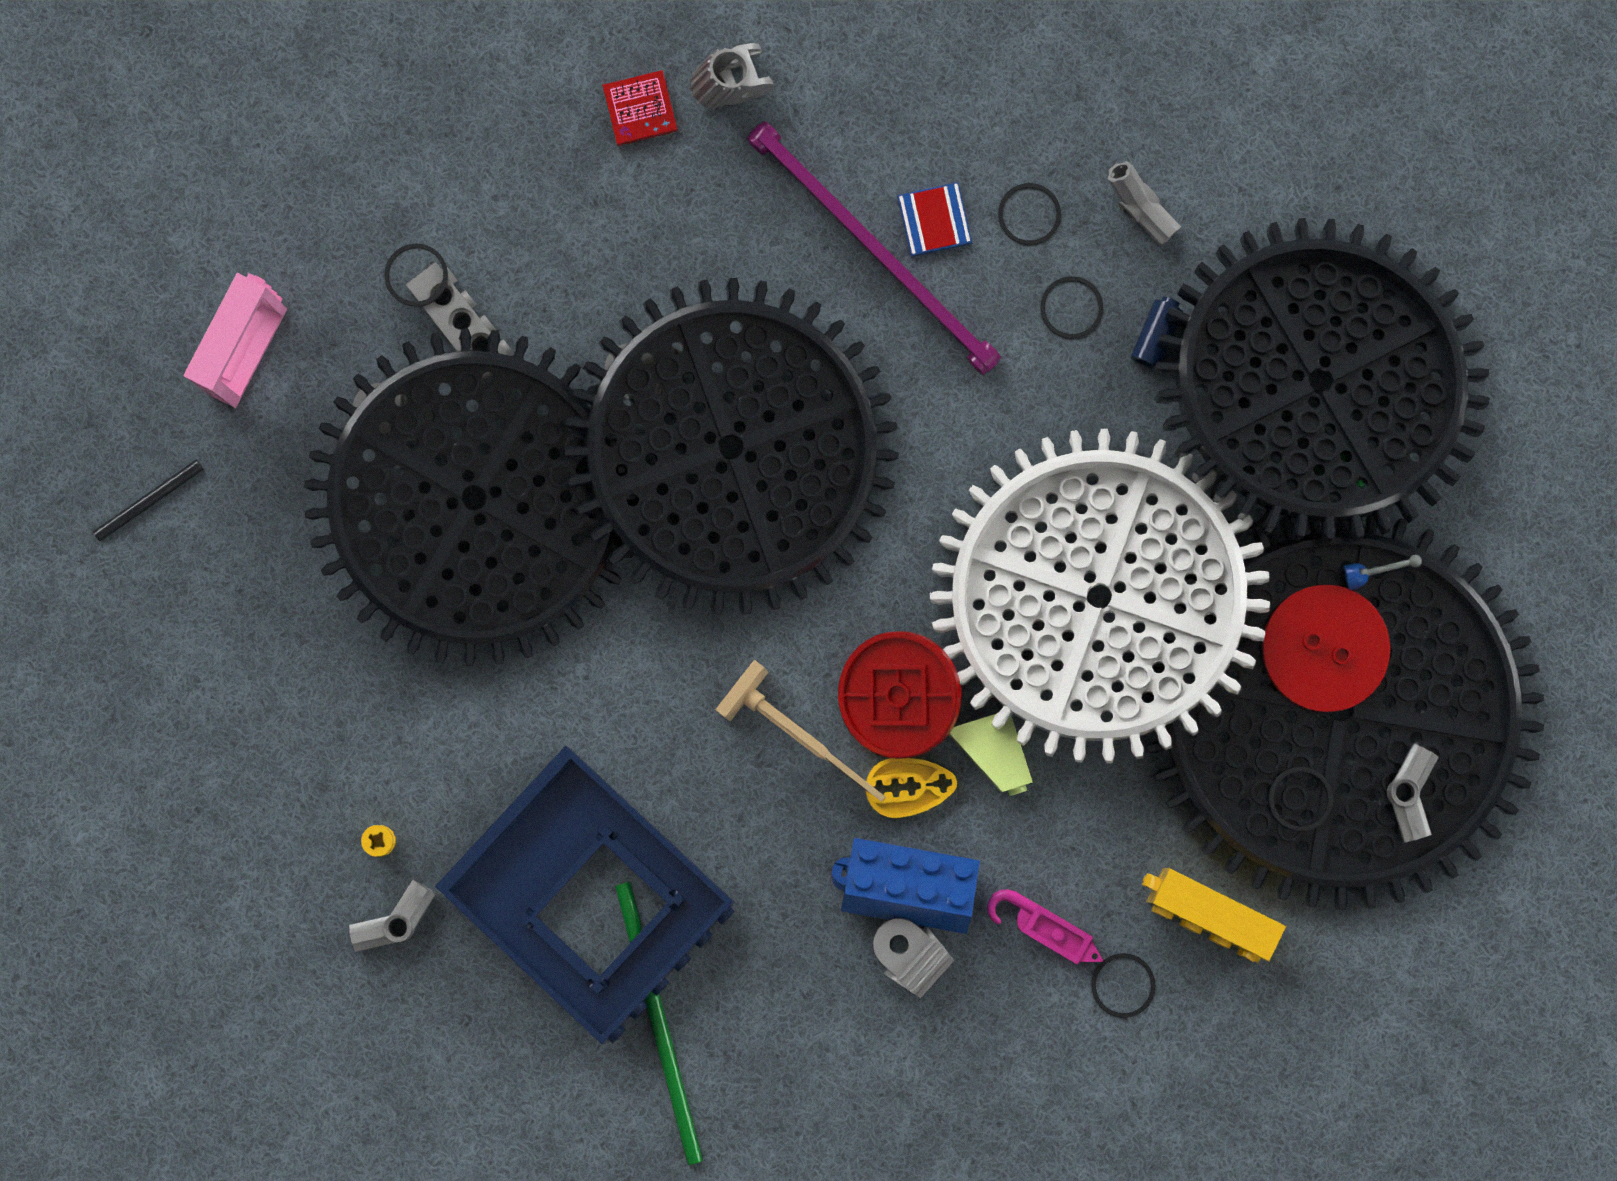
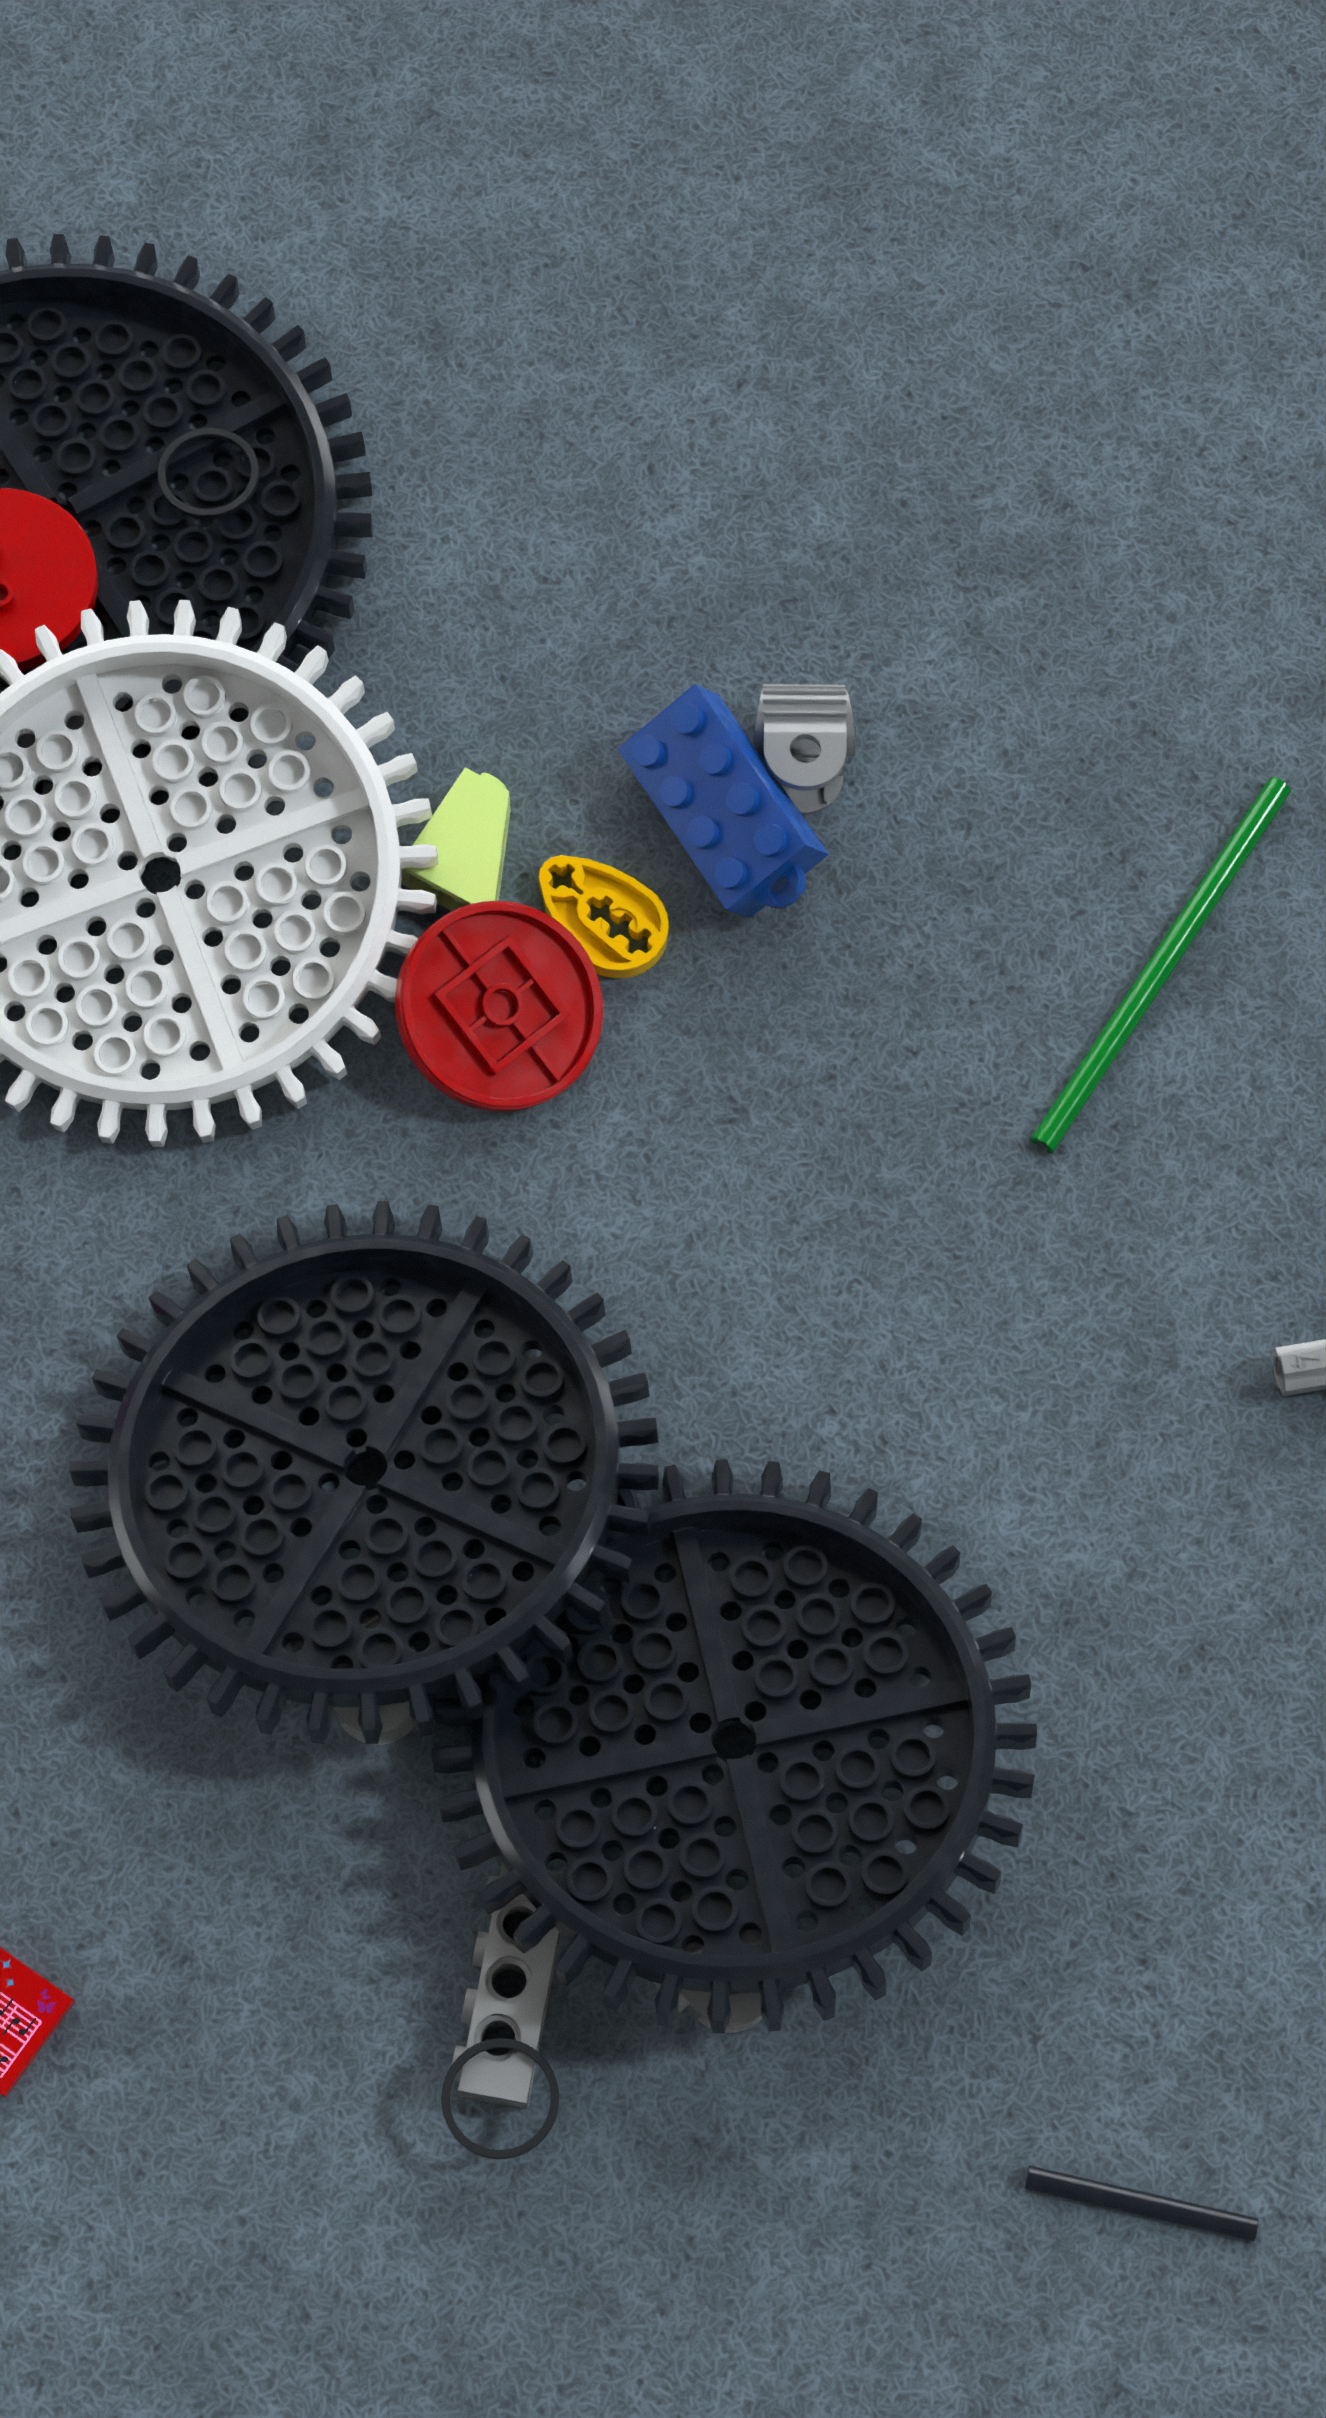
camera: 135 degrees left, 15 degrees down
(236, 339) = (818, 2248): bright pink window -> none
(386, 839) = (1272, 1489): yellow wheel -> none
(535, 854) = (1099, 1272): dark blue panel -> none
(745, 693) = (668, 1192): tan piece -> none
(1046, 927) = (625, 626): dark pink plate -> none
(1094, 991) = (612, 460): black piece -> none
(1214, 913) = (437, 450): yellow piece -> none
(1413, 773) = (113, 343): light grey piece -> none

